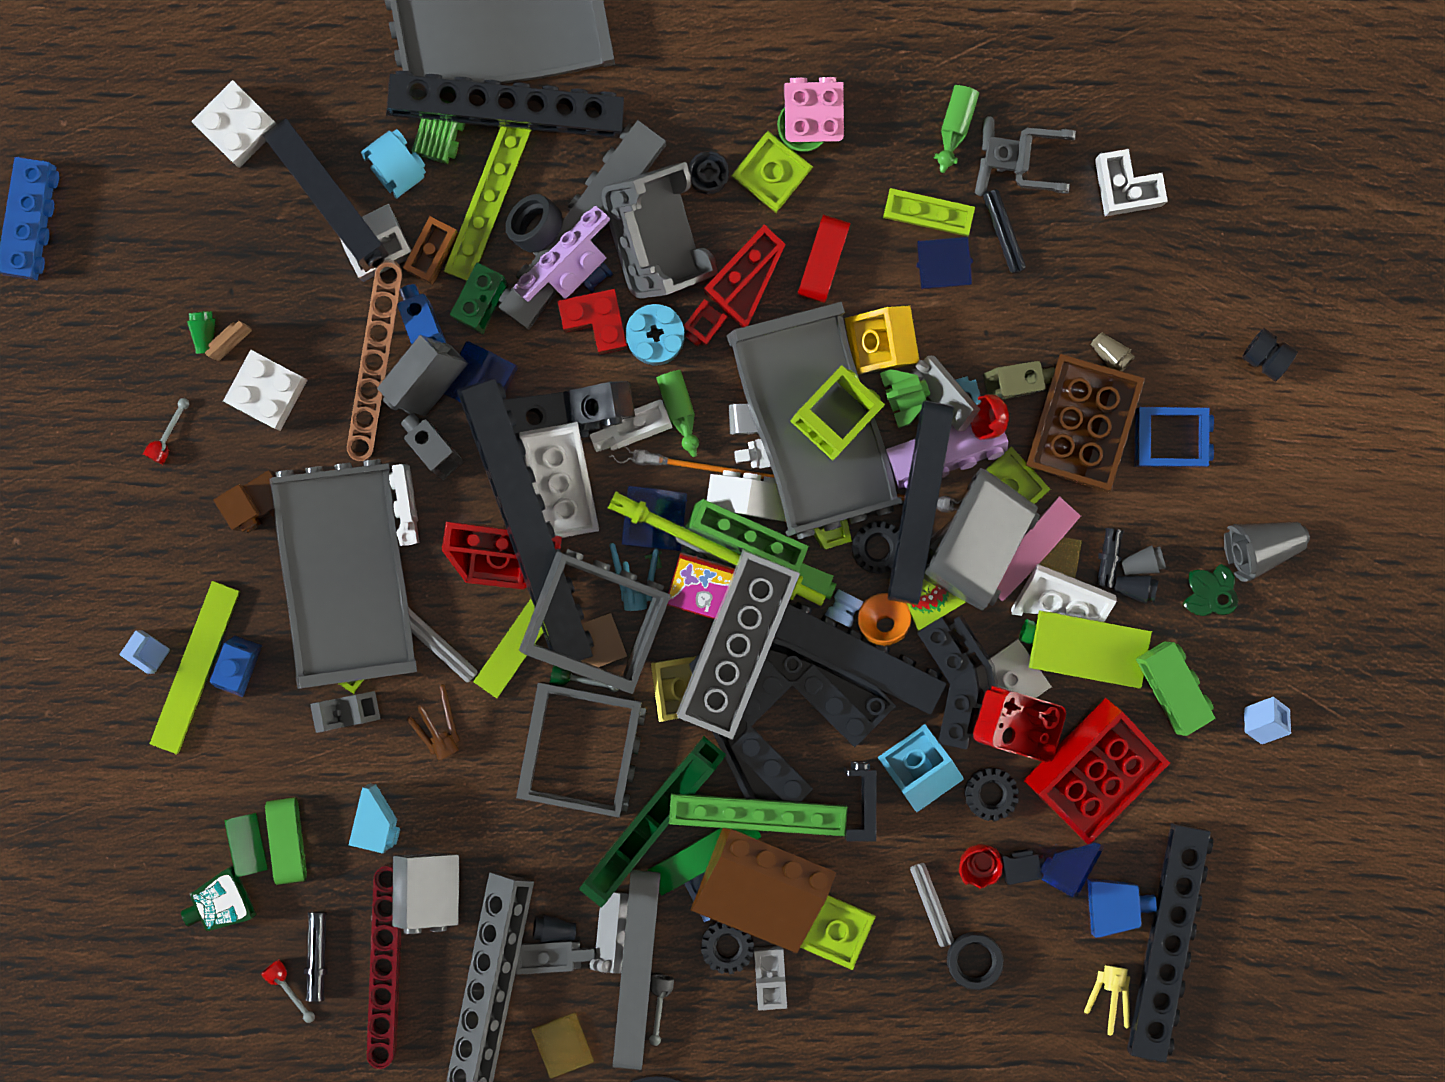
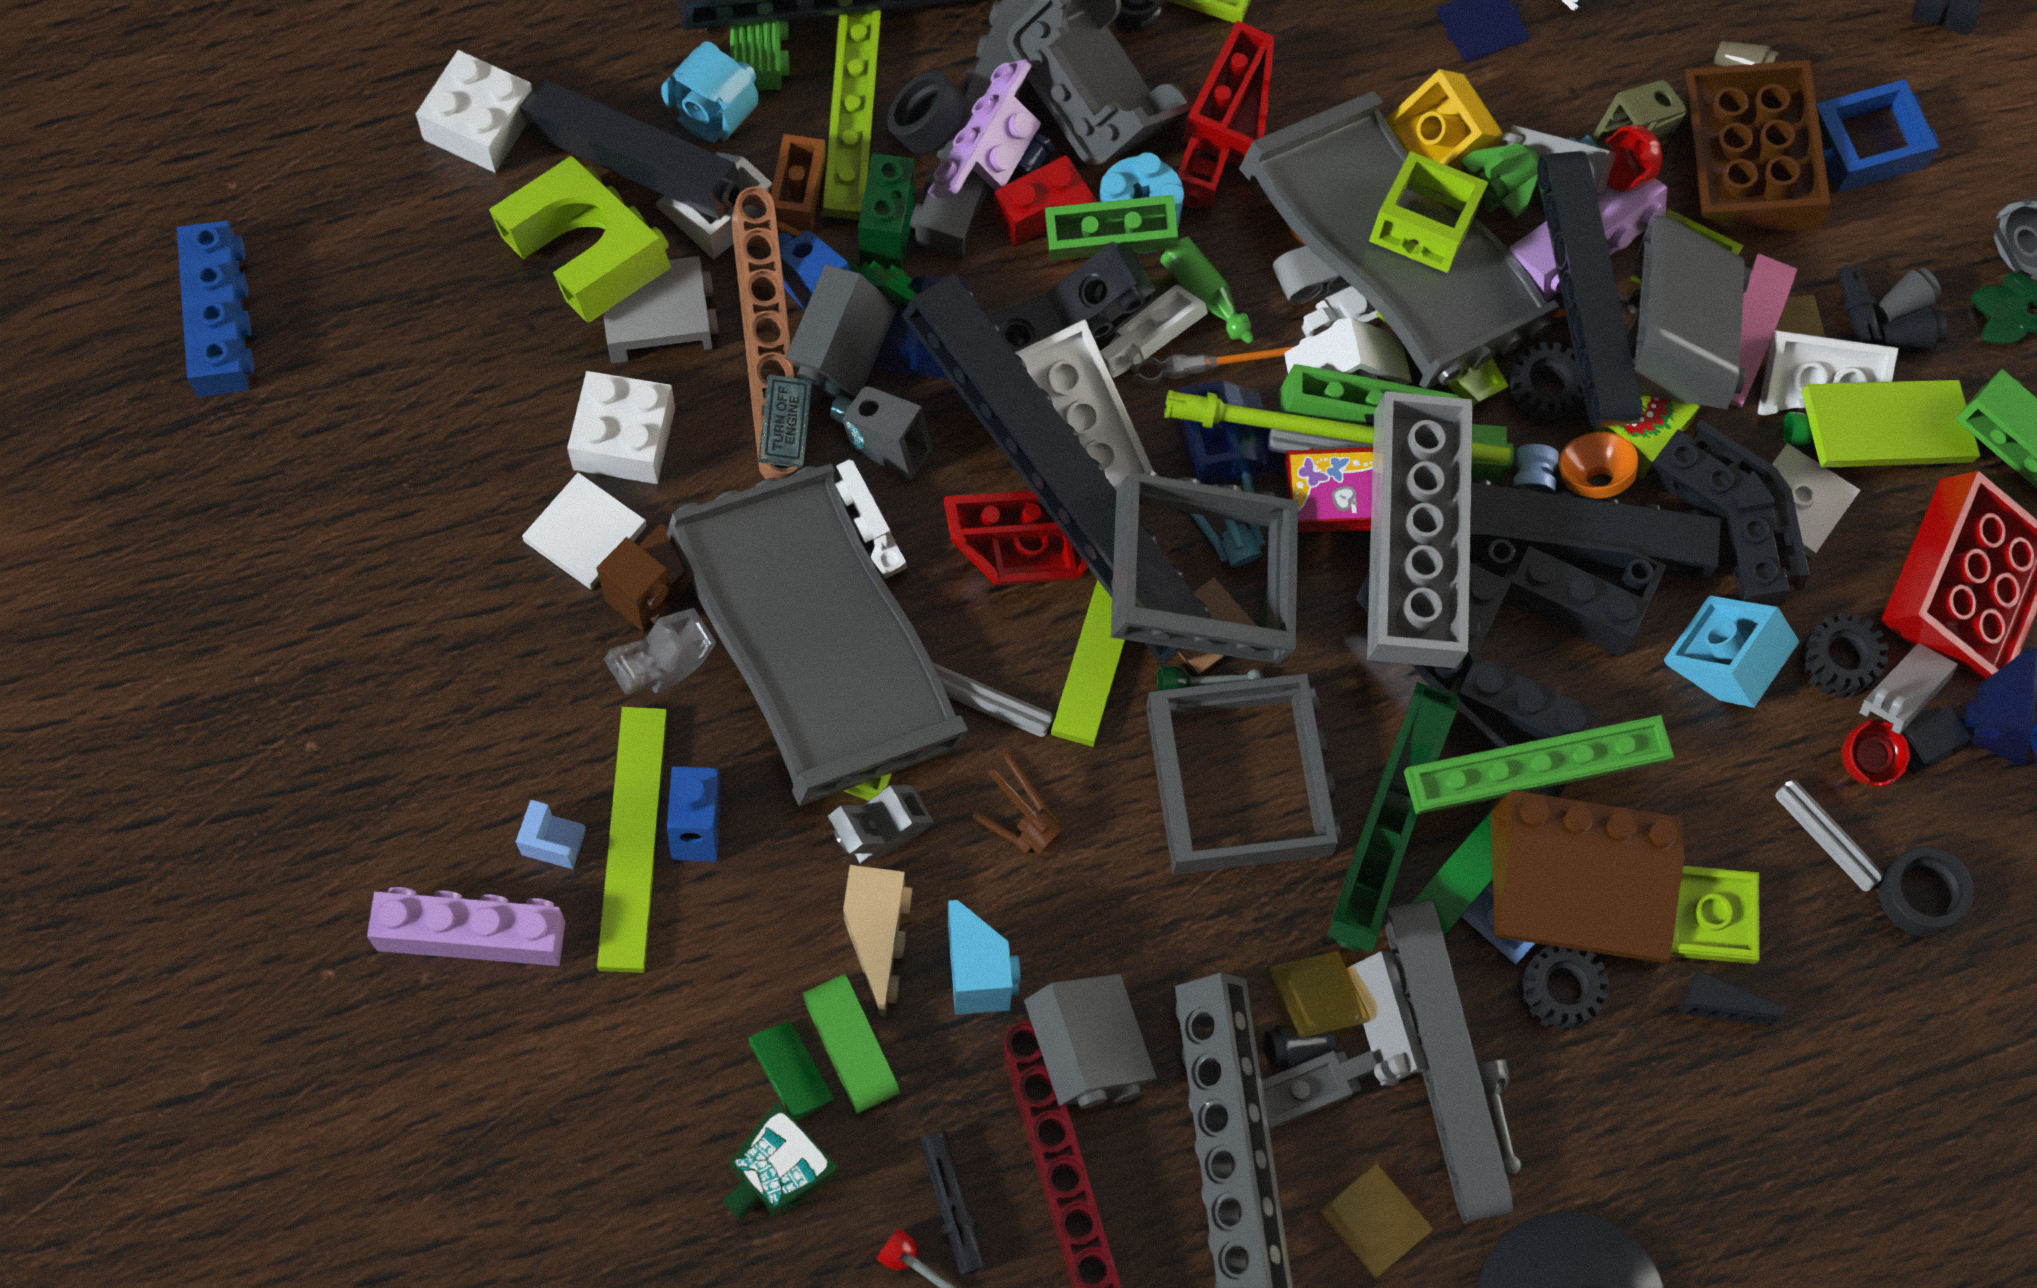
camera: 25 degrees left, 20 degrees down
(76, 696) = (466, 927): none -> lavender brick
(158, 450) = (488, 556): hinge -> none
(201, 329) = (506, 379): green cone -> none
(223, 451) = (582, 529): none -> white tile
(227, 340) = (550, 373): medium nougat piece -> none
(243, 557) = (665, 657): none -> clear brick
(299, 275) = (575, 198): none -> lime arch
(313, 310) = (664, 312): none -> light grey panel
(322, 769) = (872, 918): none -> tan slope
(365, 429) = (784, 421): none -> clear light blue tile
(457, 341) = (891, 282): none -> green slope
(572, 907) = (1319, 994): none -> clear yellow piece
(618, 363) = (1089, 227): none -> bright green brick
(670, 684) = (1337, 646): light yellow slope -> none
(770, 977) = (1643, 1017): light grey slope -> none
(816, 985) = (1721, 1000): none -> black slope
(824, 258) = (1326, 55): red beam -> none
(867, 829) = (1682, 707): black panel -> none
(1019, 832) = (1909, 687): none -> light grey hinge
(1033, 722) = (1846, 534): red axle -> none

